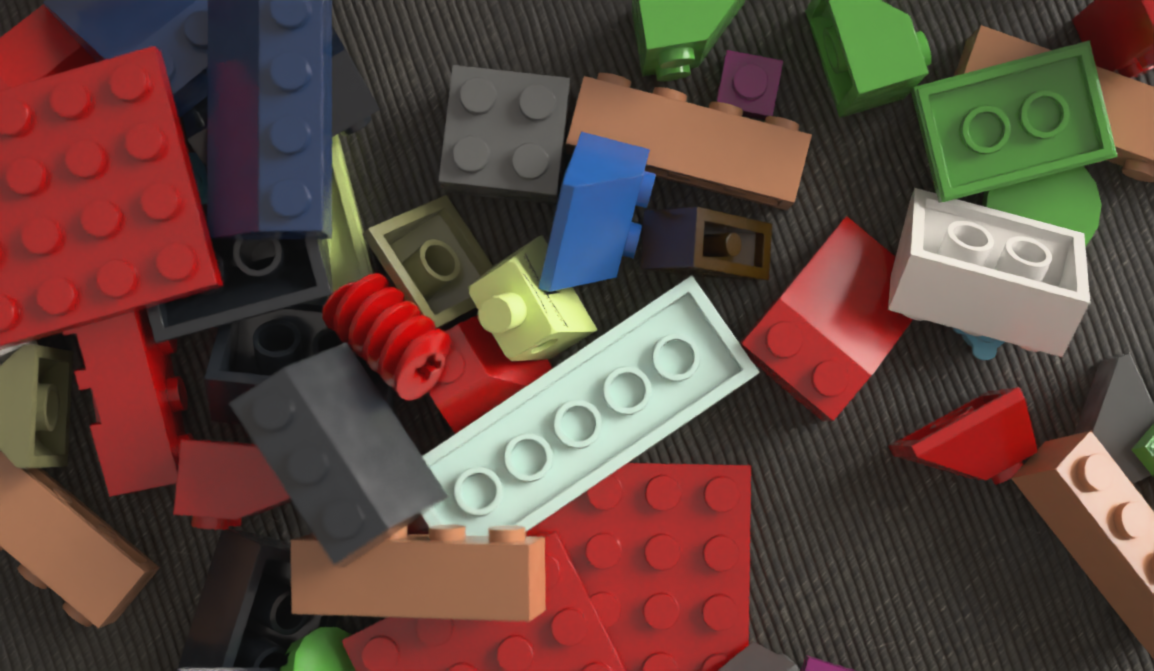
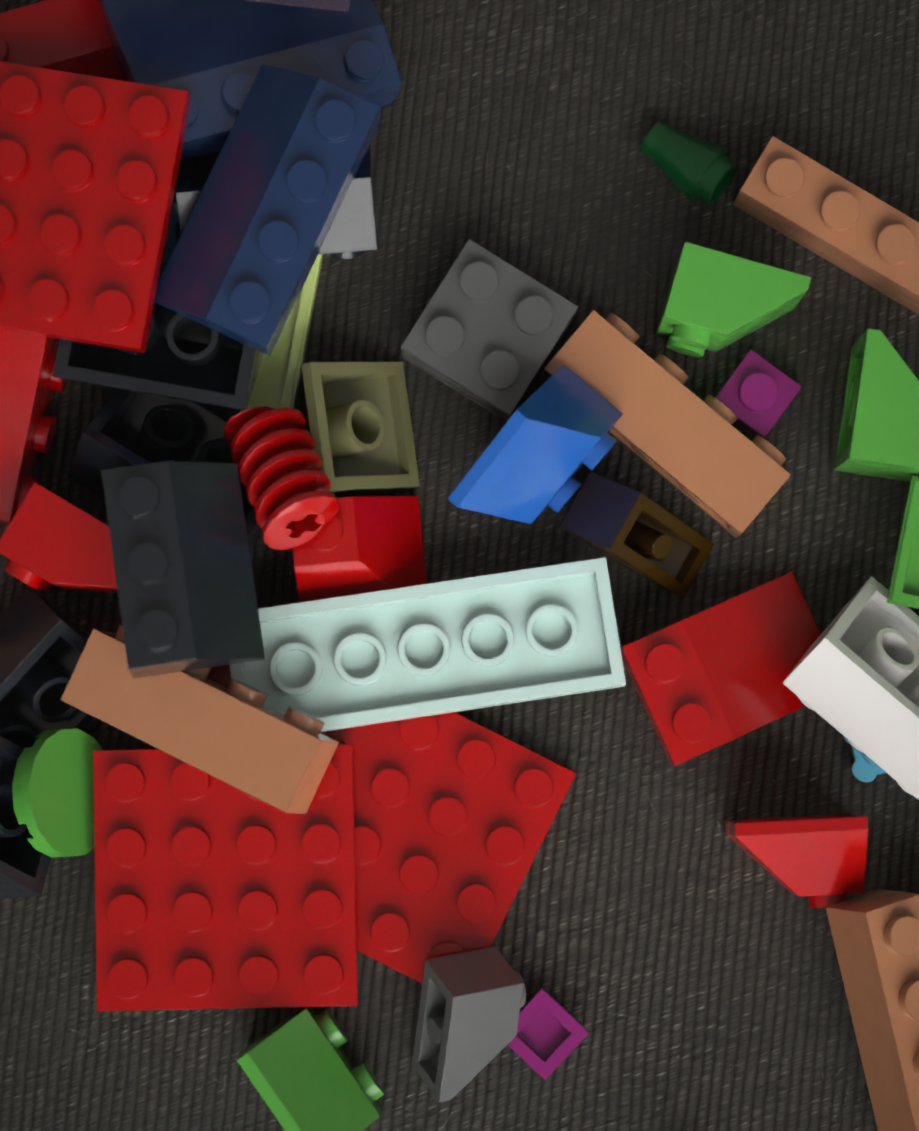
camera: 30 degrees right, 0 degrees up
(525, 318) = (419, 519): yellowish green torso -> none

